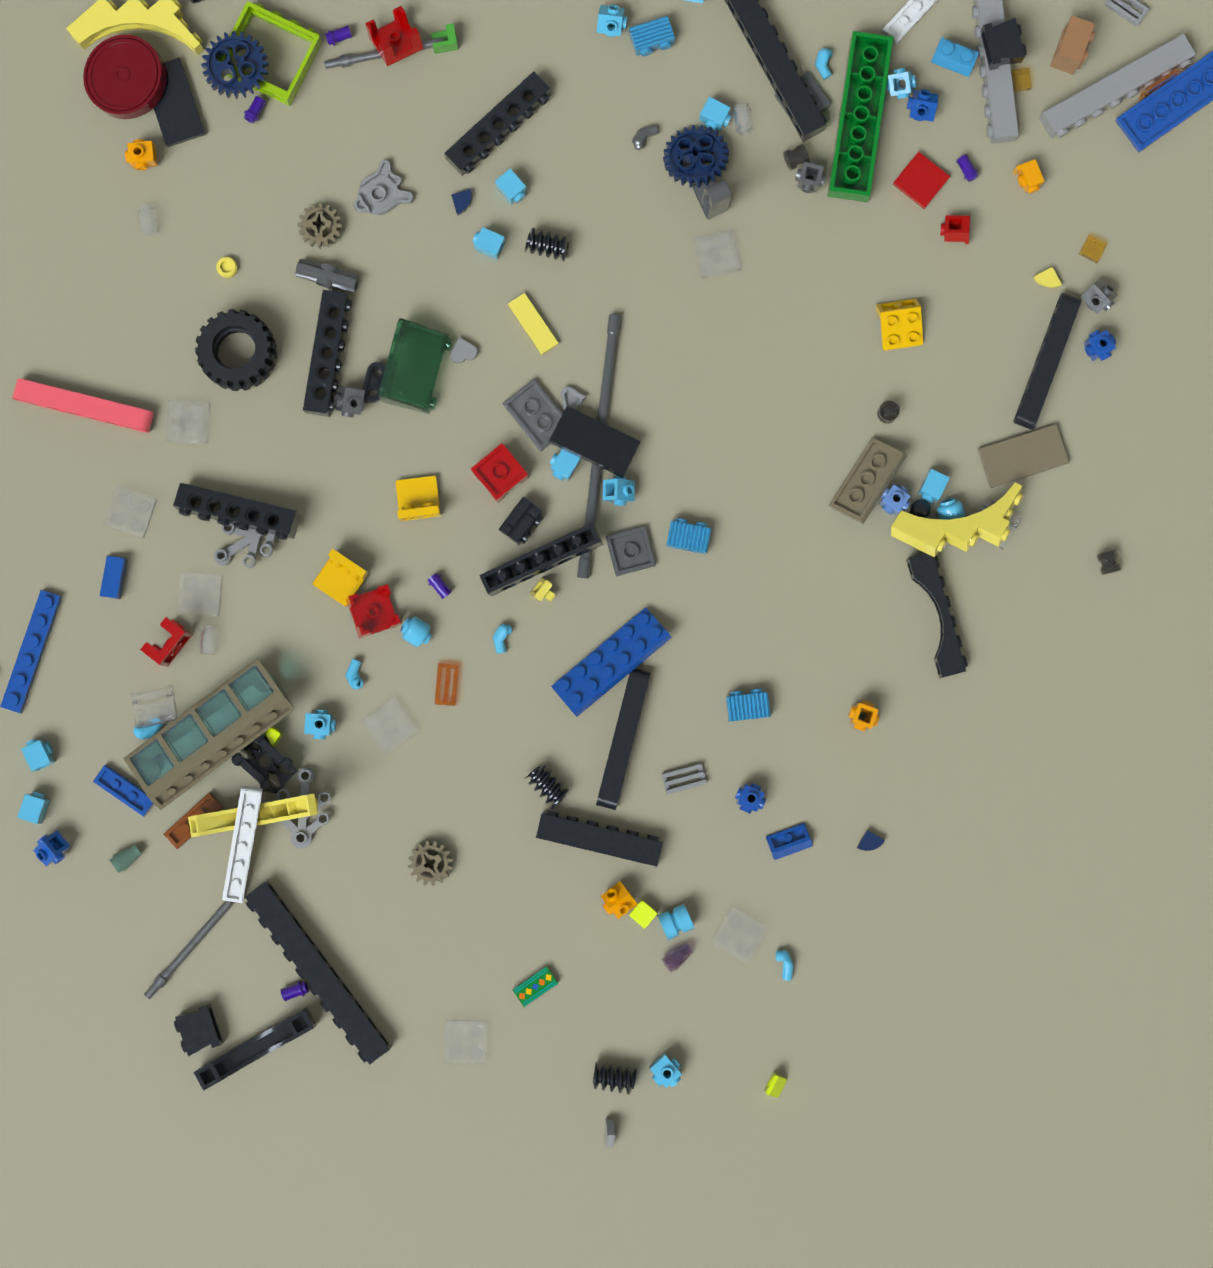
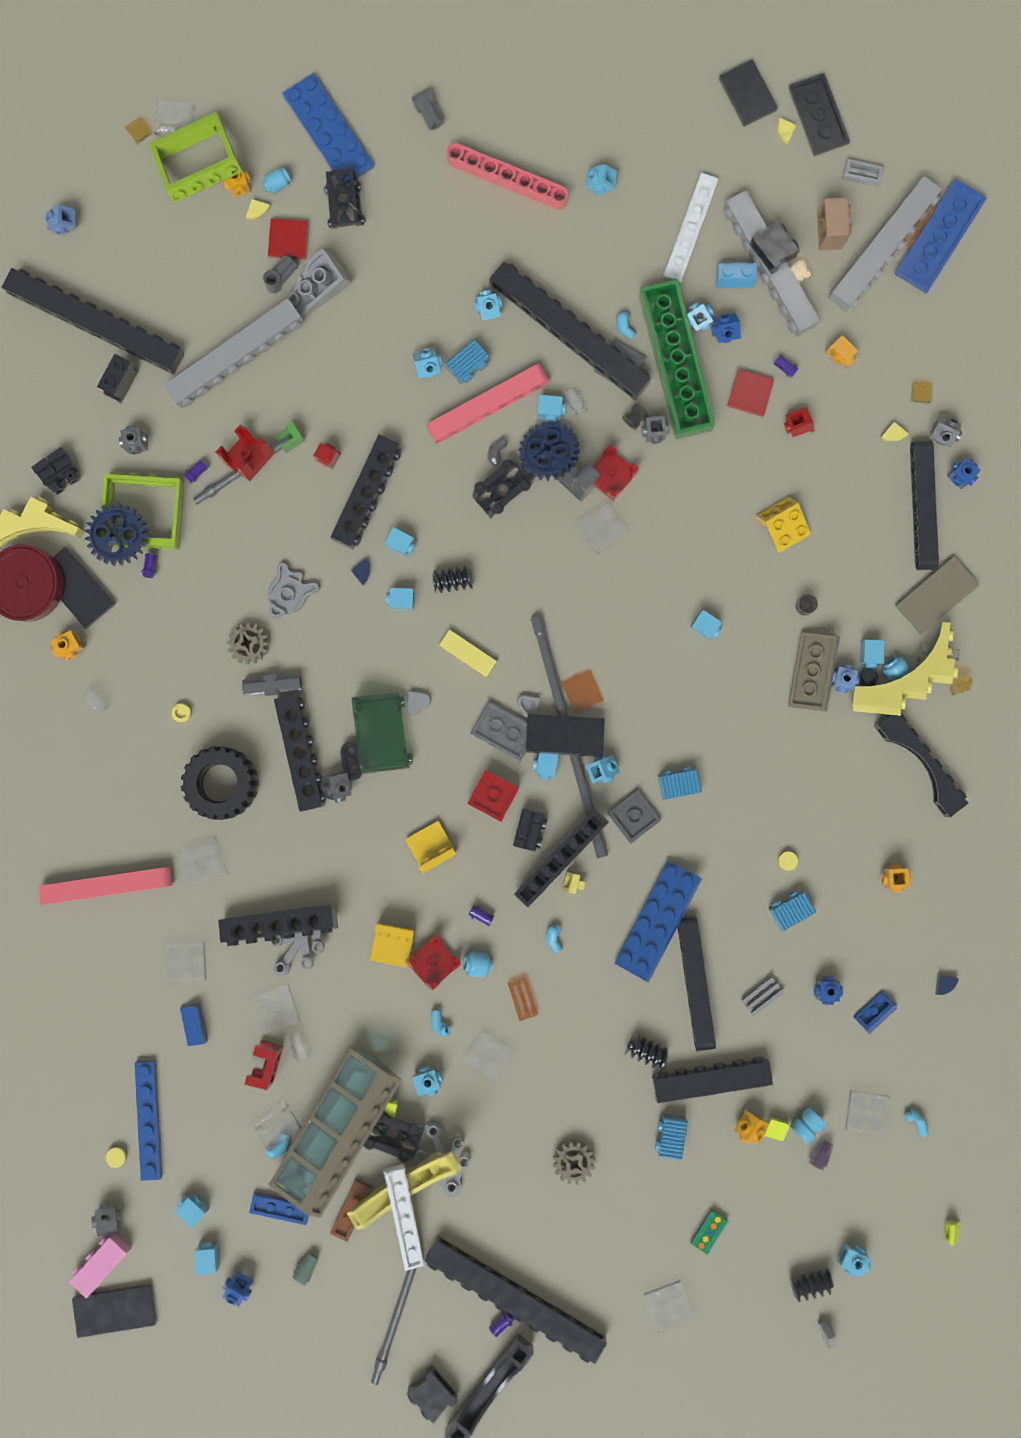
camera: 20 degrees left, 0 degrees up
(474, 71) = (326, 455): none -> red brick
(536, 878) = (672, 1137): none -> dark azure brick
(628, 165) = (498, 479): none -> black piece
(630, 408) = (582, 691): none -> clear orange piece
(655, 84) = (488, 403): none -> coral beam
(750, 204) = (614, 473): none -> red panel
(764, 657) = (787, 861): none -> light yellow tile
(780, 392) = (707, 625): none -> medium azure brick
(1008, 553) = (961, 685): none -> clear yellow tile

